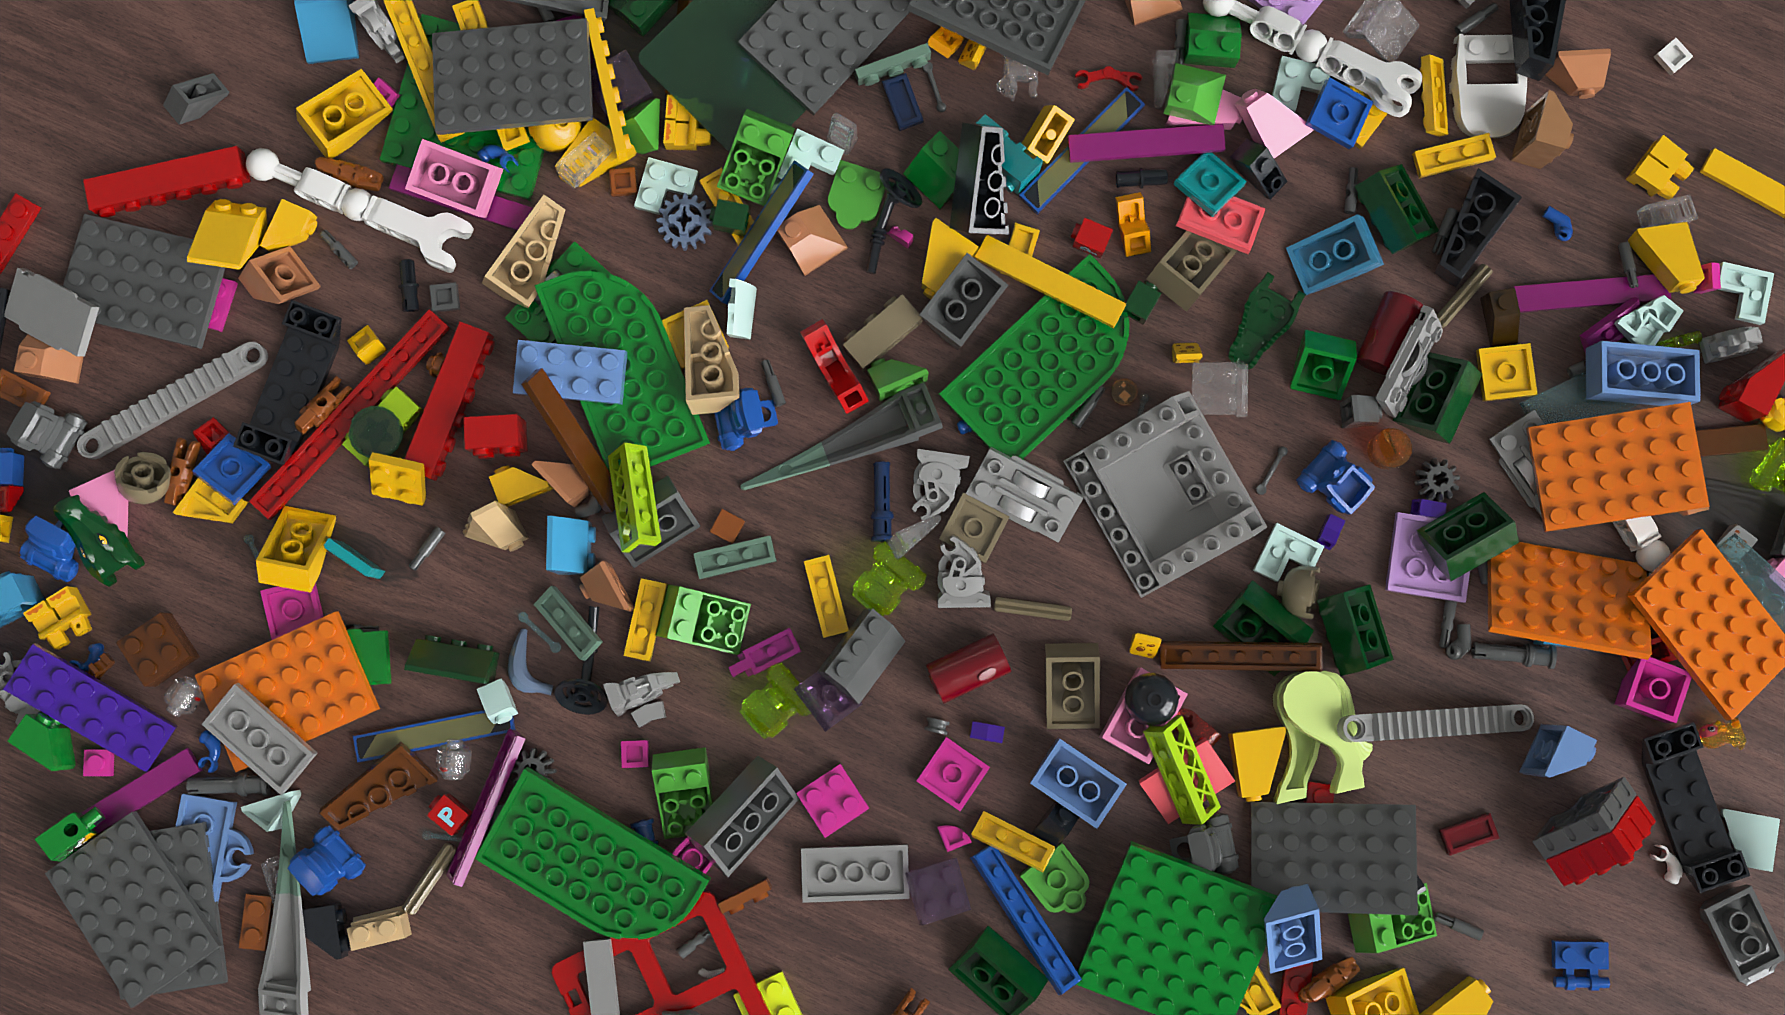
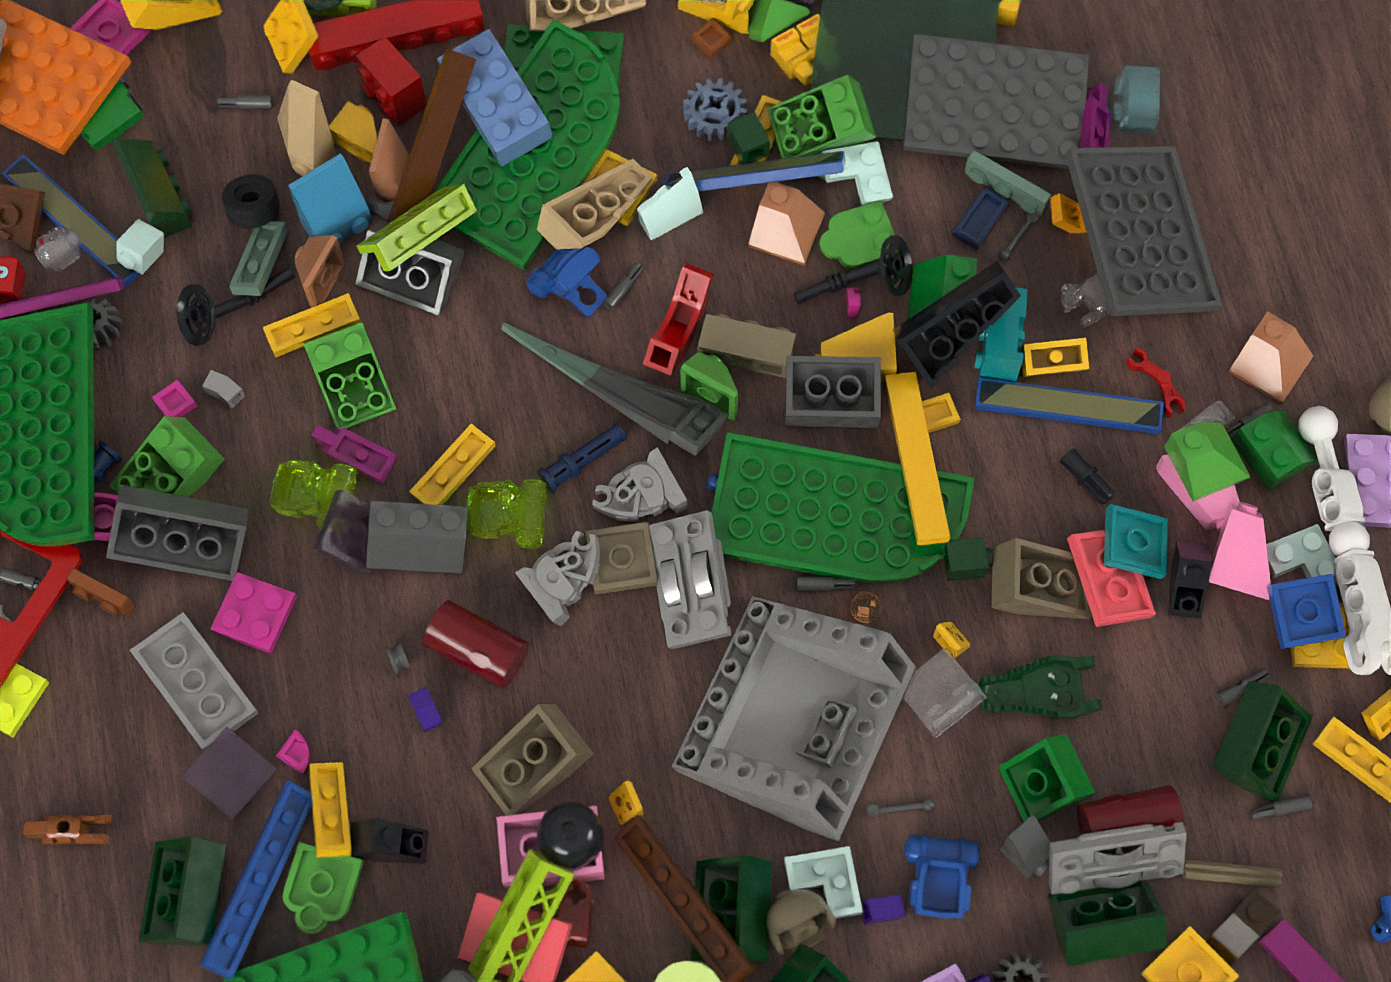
camera: 55 degrees right, 15 degrees down
(353, 558) = (189, 43): teal tile -> none
(503, 593) = (249, 188): none -> black tyre
(518, 669) = (183, 249): sand blue piece -> none
(555, 647) = (229, 267): clear light blue hinge -> none
(638, 691) = (232, 358): light grey piece -> none
(659, 179) = (736, 65): light aqua plate -> none
(727, 526) = (455, 338): dark orange tile -> none
(735, 557) = (430, 362): sand green plate -> none
(842, 133) = (905, 181): clear slope -> none
(907, 538) = (567, 500): clear slope -> none
(953, 774) = (359, 706): dark pink plate -> none
(972, 54) = (1075, 248): yellow slope -> none
(1032, 609) = (582, 670): dark tan axle -> none
(1077, 783) = (434, 829): medium blue slope -> none
(1091, 237) = (991, 470): red brick -> none
(1132, 224) = (1036, 500): light orange slope -> none
(1146, 143) = (1124, 455): magenta tile -> none
(1335, 255) = (1167, 713): dark azure slope -> none
(1389, 448) = (1015, 909): clear orange piece -> none
(1478, 220) = (1312, 831): black wedge -> none

